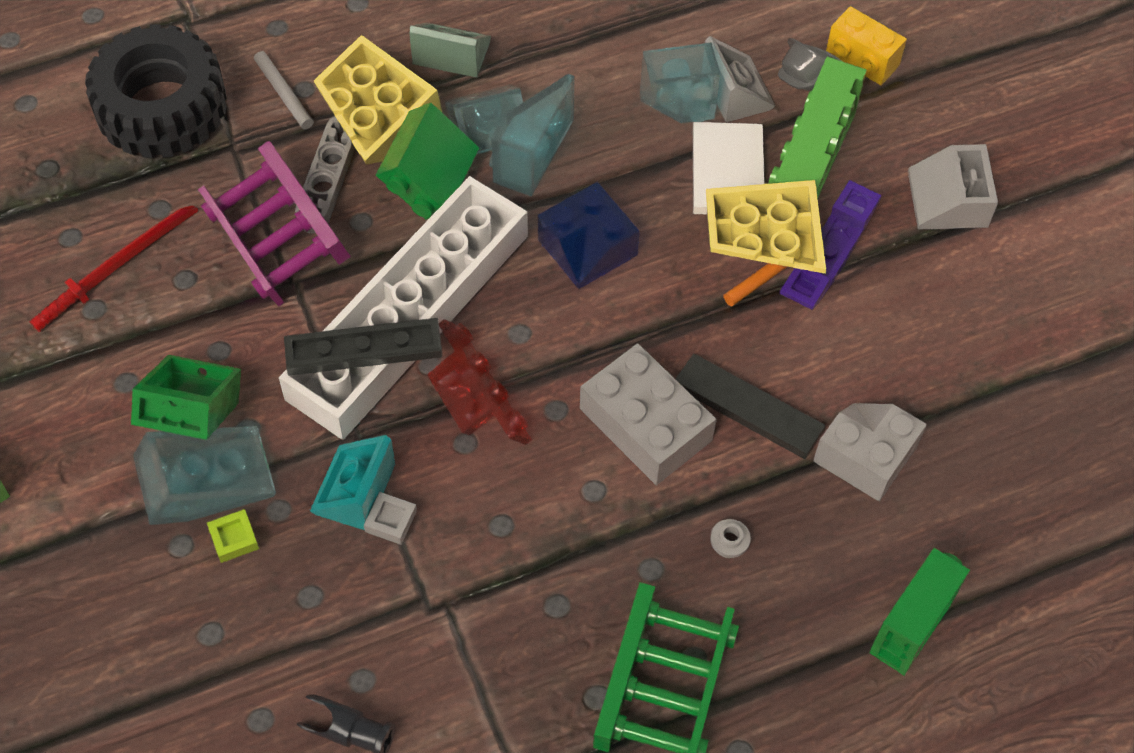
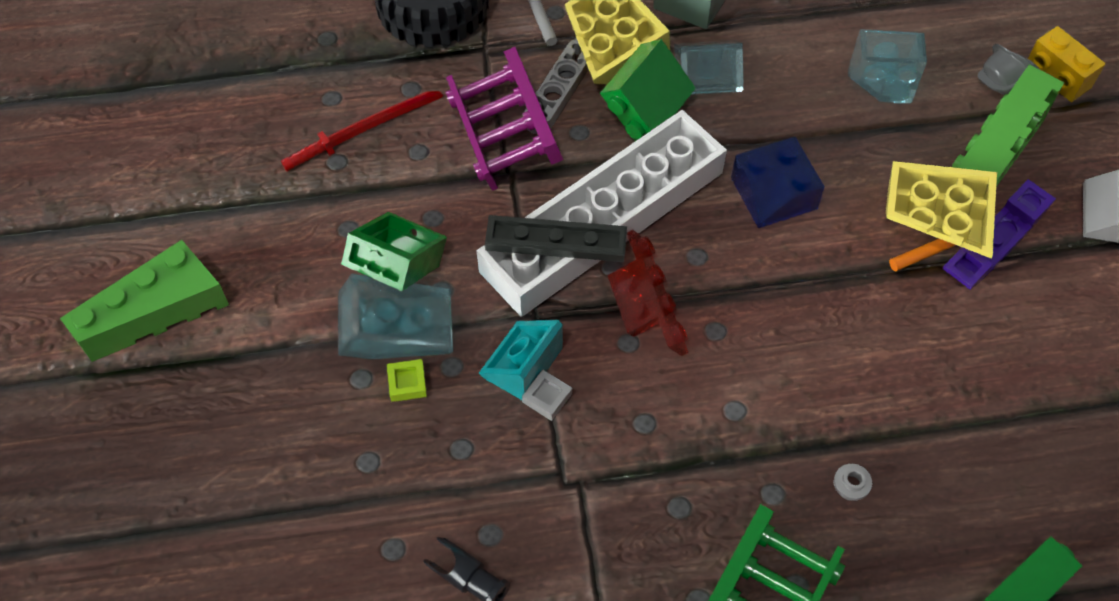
camera: 15 degrees right, 0 degrees up
(531, 136) = (744, 86): clear light blue slope -> none
(647, 413) = (798, 351): light grey brick -> none
(725, 158) = (914, 137): white tile -> none
(740, 85) = (941, 80): light grey slope -> none
(750, 406) = (894, 365): pearl dark grey tile -> none
(869, 445) = (1002, 425): light grey slope -> none

